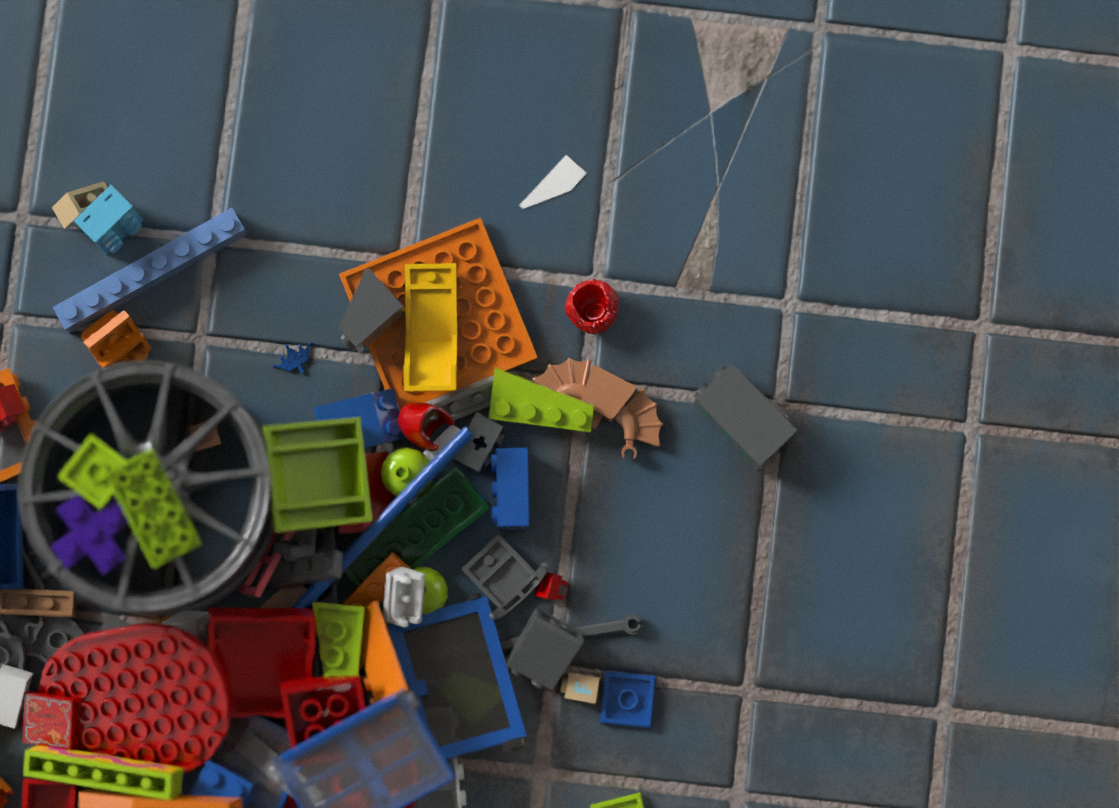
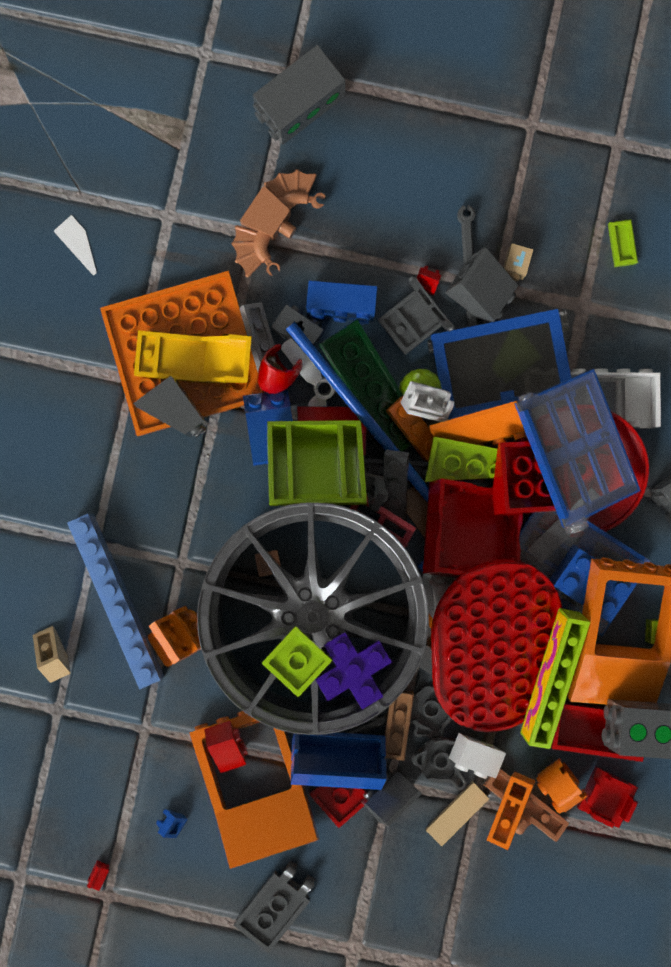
camera: 85 degrees left, 5 degrees up
(49, 720) = (502, 722): red tile -> none
(109, 220) = (66, 632): medium azure piece -> none
(152, 508) = (336, 611): lime tile -> none
(294, 358) = (207, 482): blue piece -> none
(394, 474) = (309, 394): lime cylinder -> none
(530, 403) = (268, 278): lime wing -> none
(592, 306) = (188, 216): red hair -> none
(627, 699) = (529, 225): blue tile -> none

